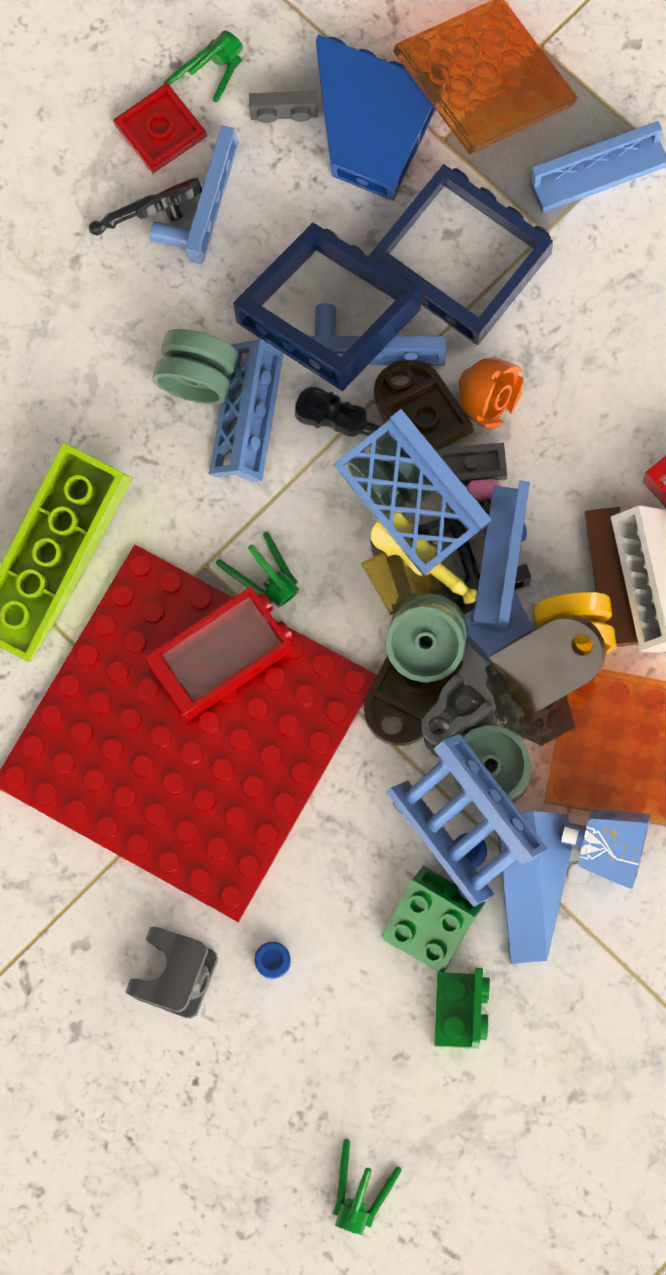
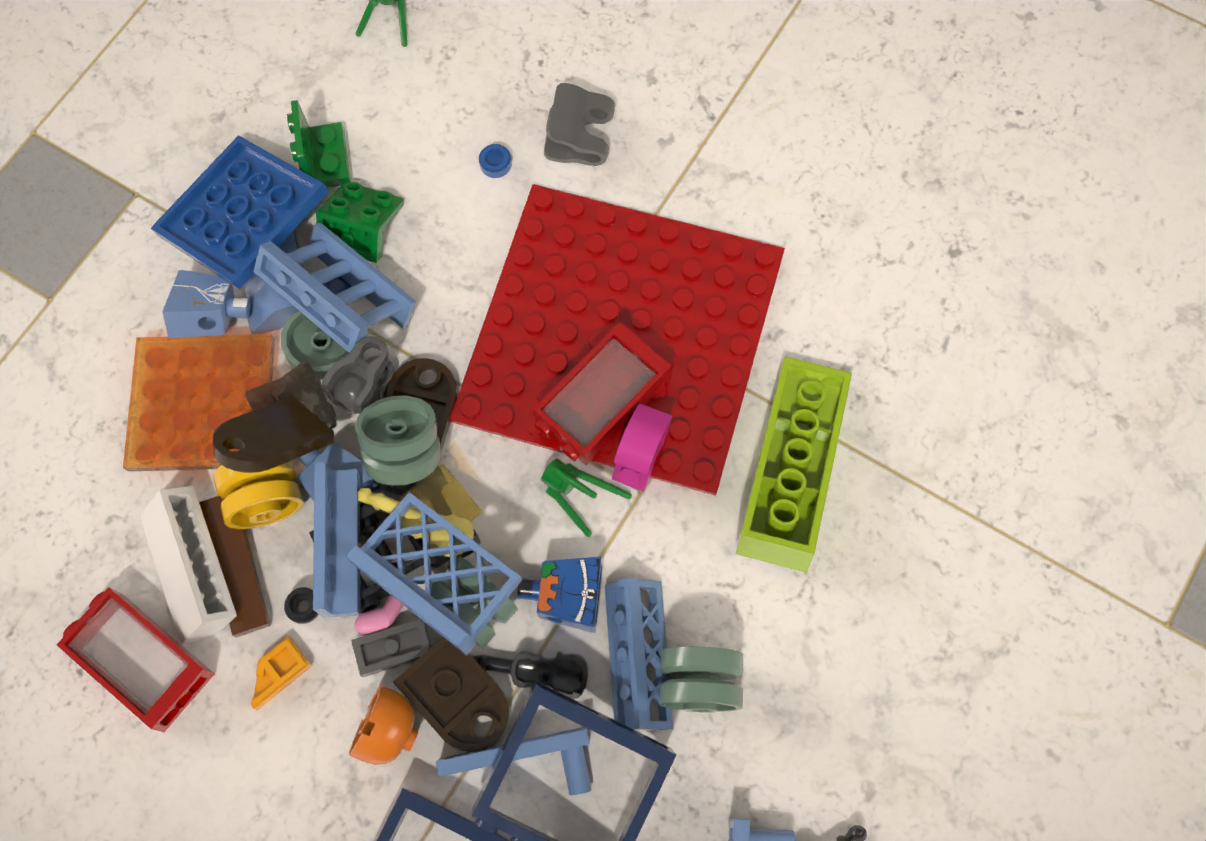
camera: 165 degrees right, 5 degrees down
(193, 592) = (640, 447): none -> dark pink brick
(298, 477) = (566, 592): none -> blue torso
(553, 512) = (292, 602): none -> black plate
(560, 947) = (237, 207): none -> blue plate
(581, 469) = (277, 671): none -> light orange tile

